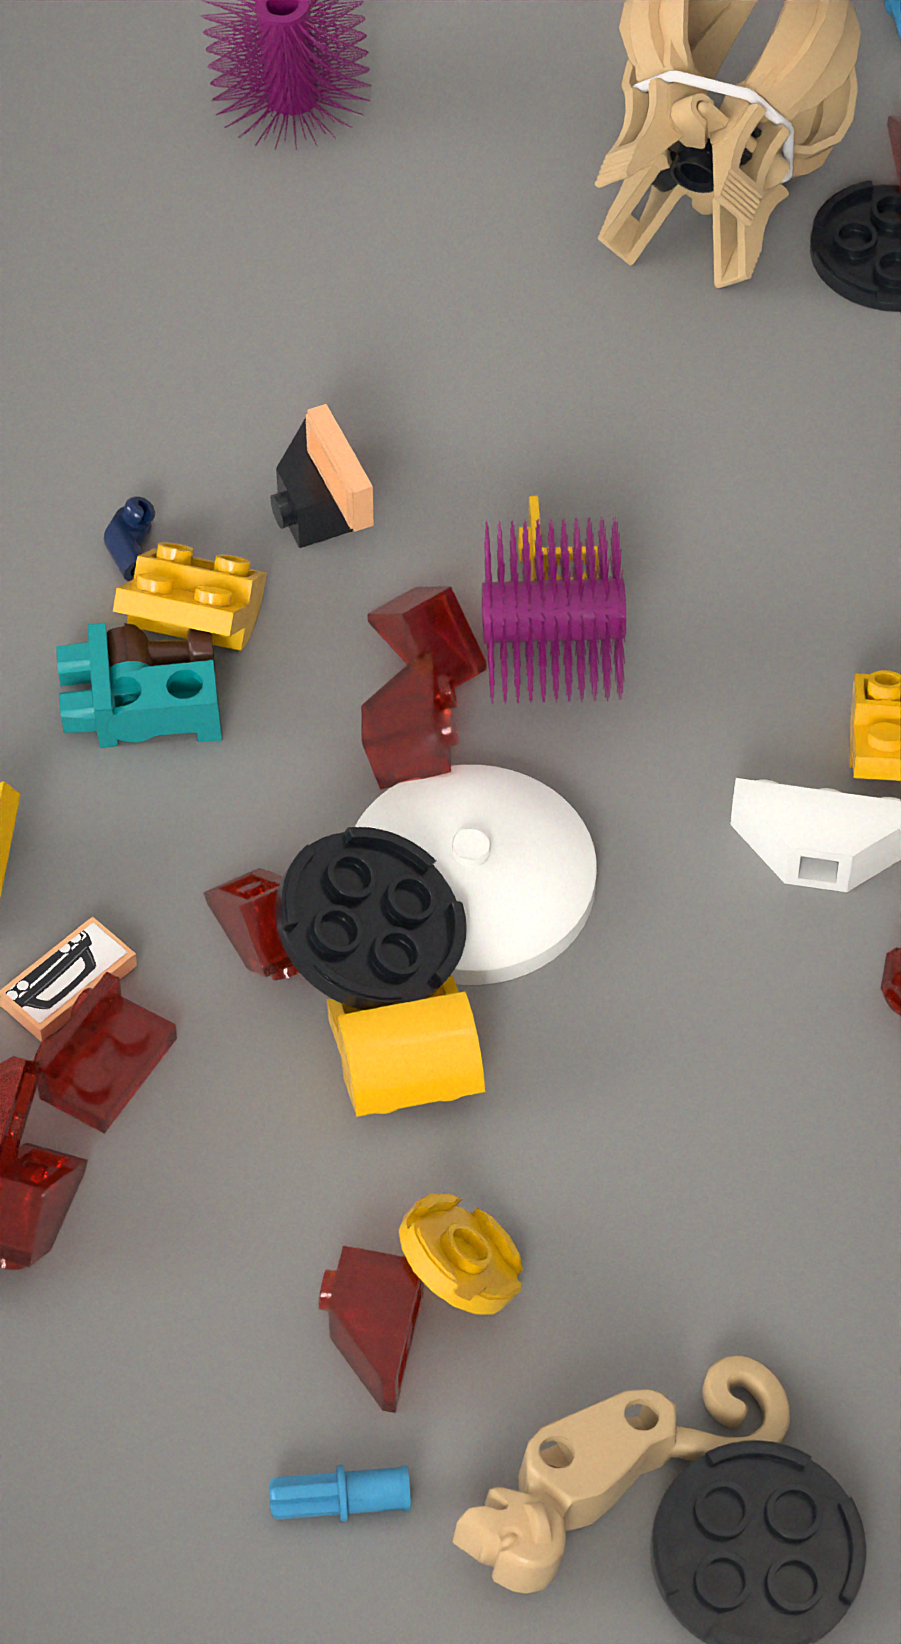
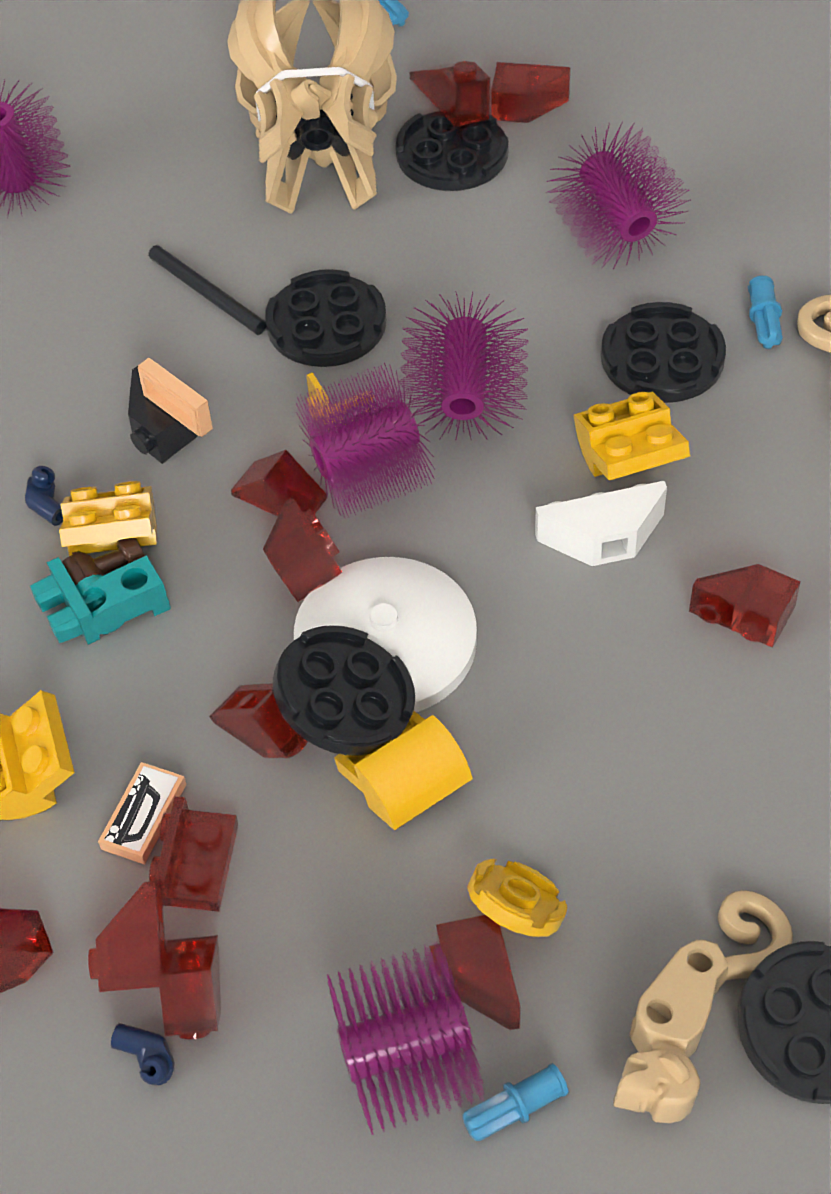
camera: 20 degrees left, 0 degrees up
(232, 1356) = (406, 1037): none -> magenta piece
(466, 334) = (207, 289): none -> black bar
(603, 427) = (326, 318): none -> black tile
(731, 559) = (464, 367): none -> magenta piece

